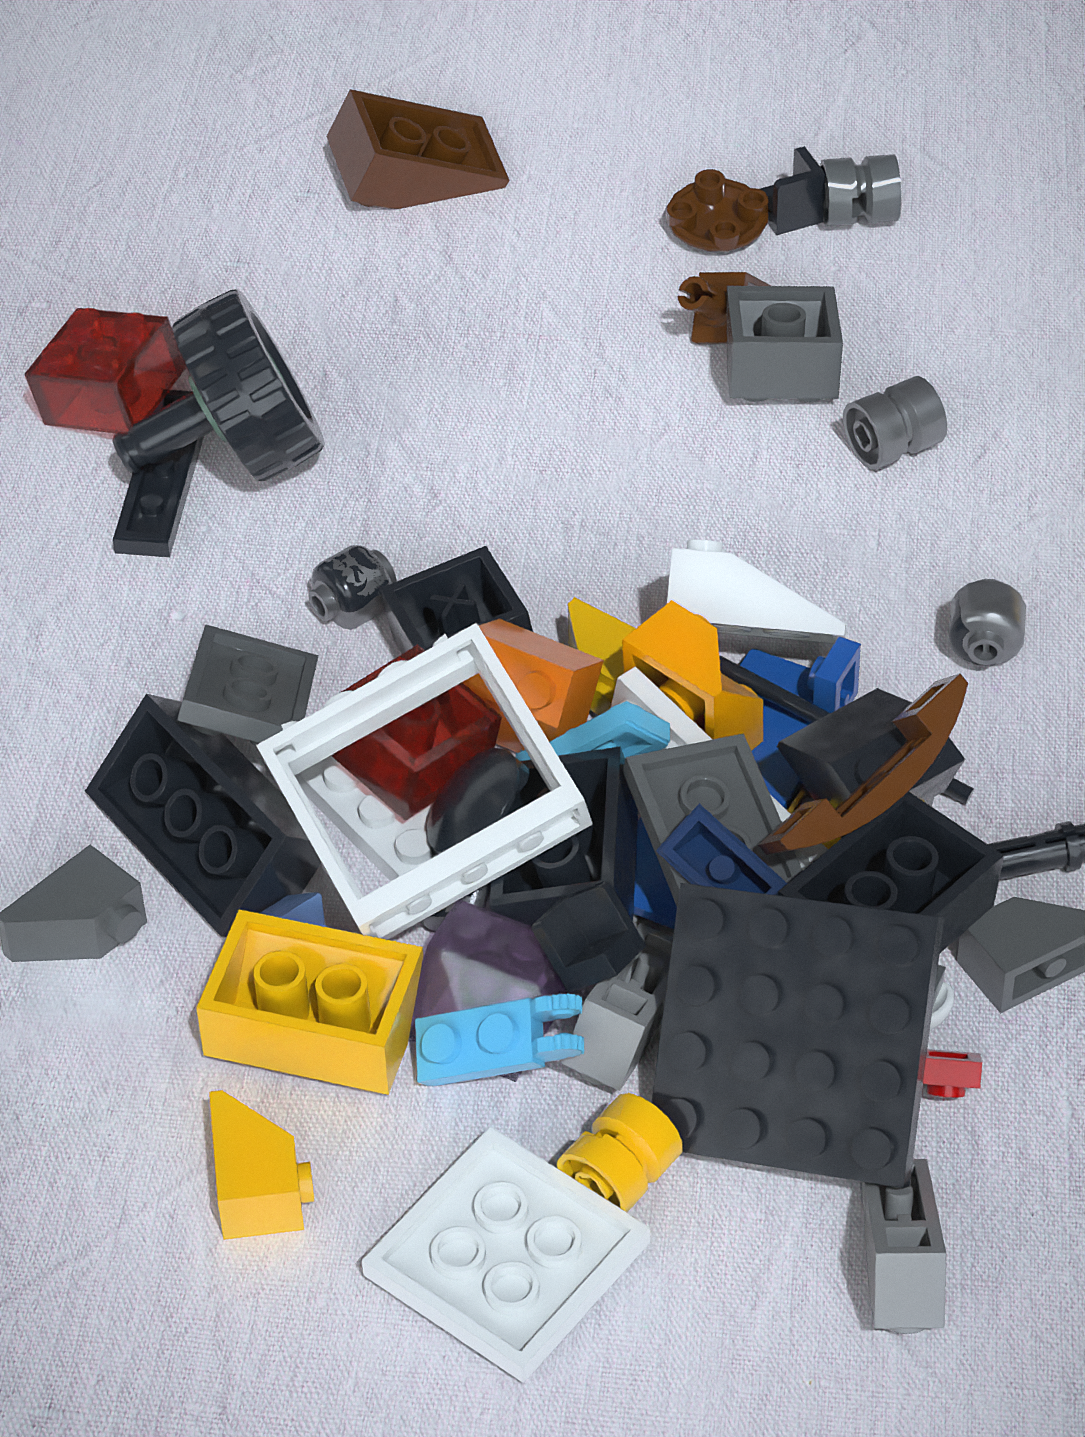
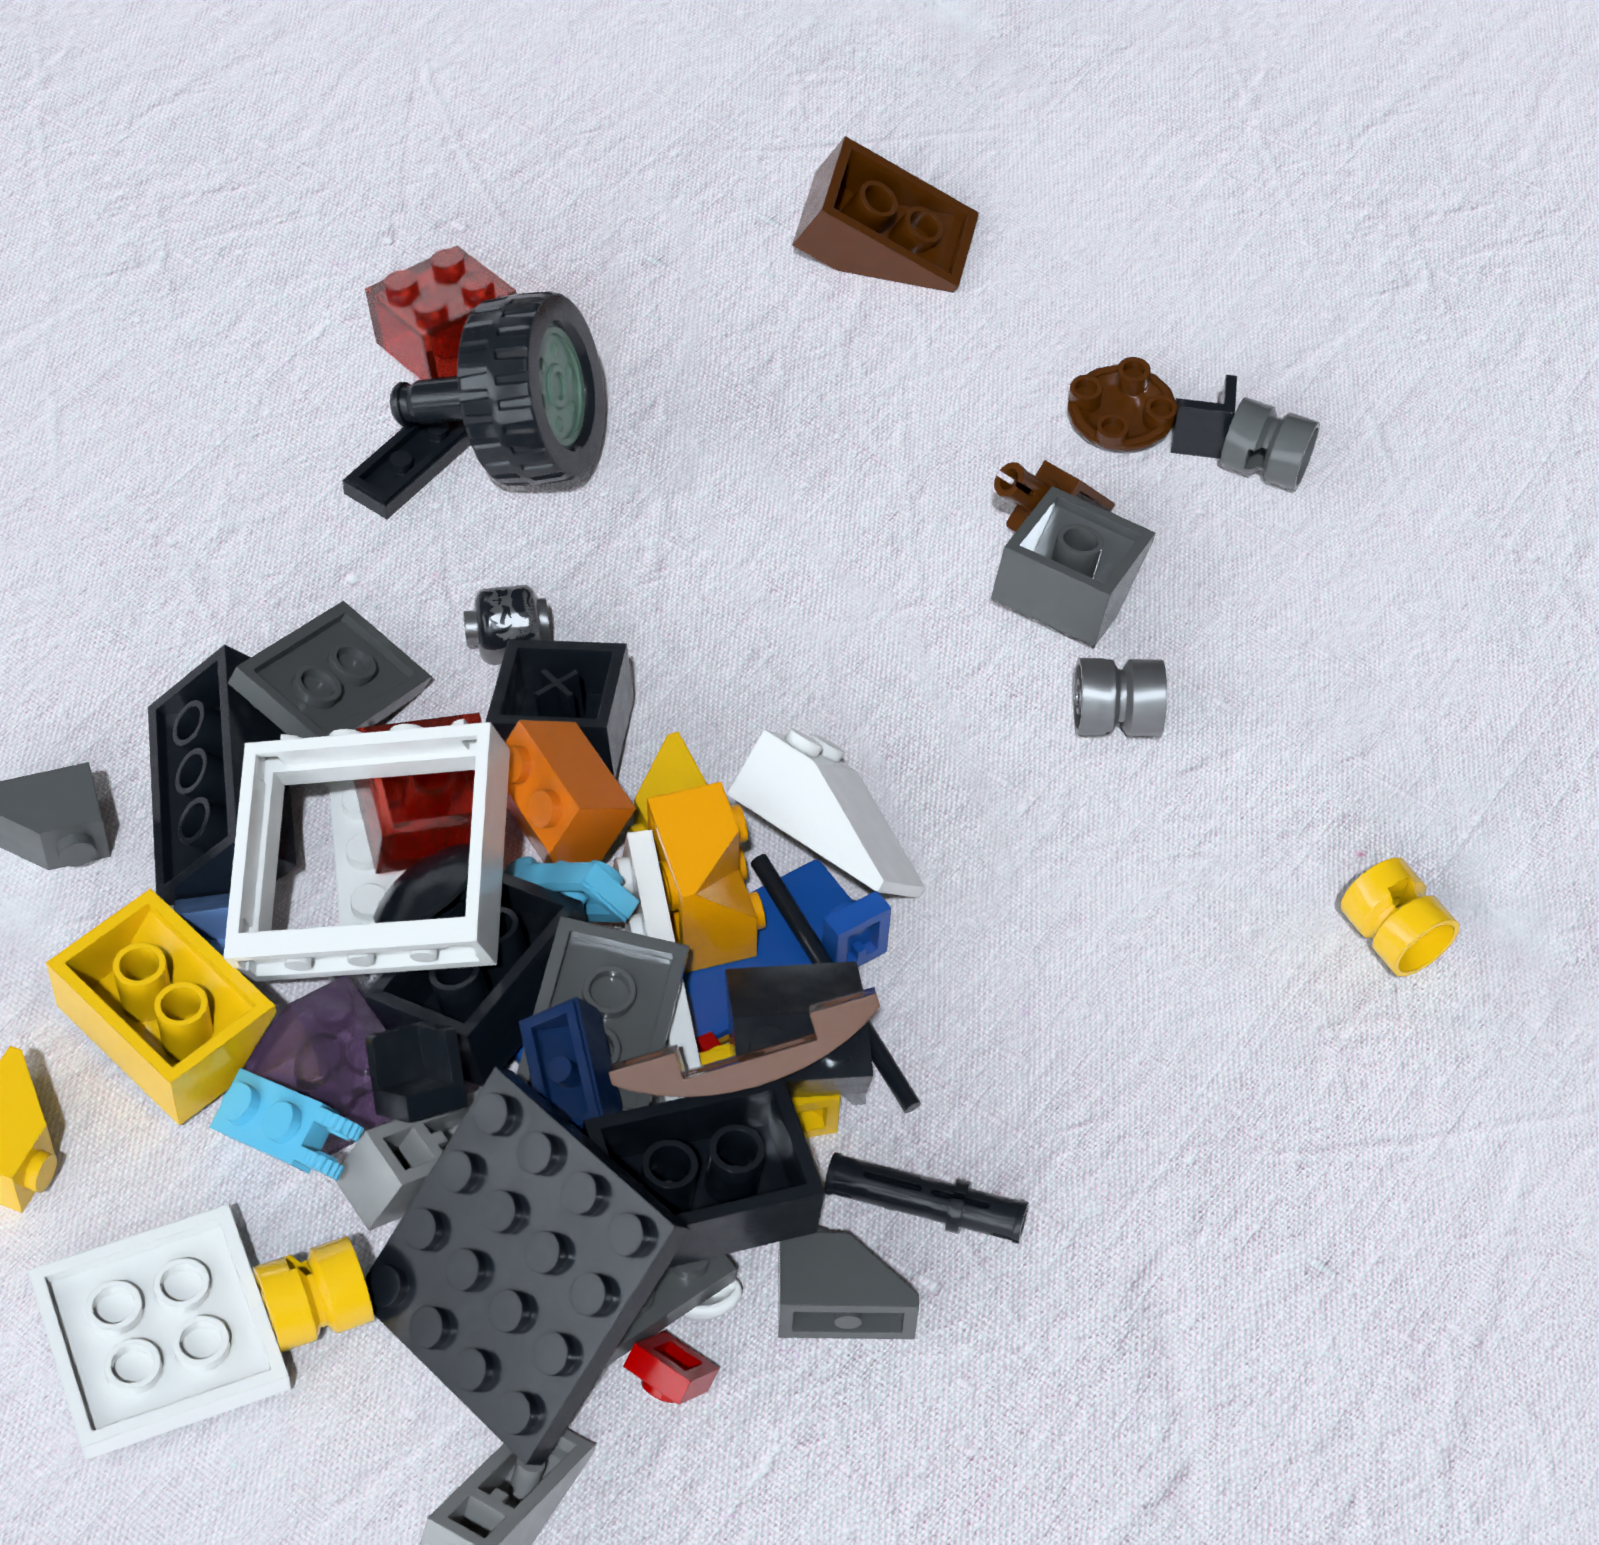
camera: 25 degrees right, 5 degrees up
(987, 619) = (1050, 942): flat silver head -> none

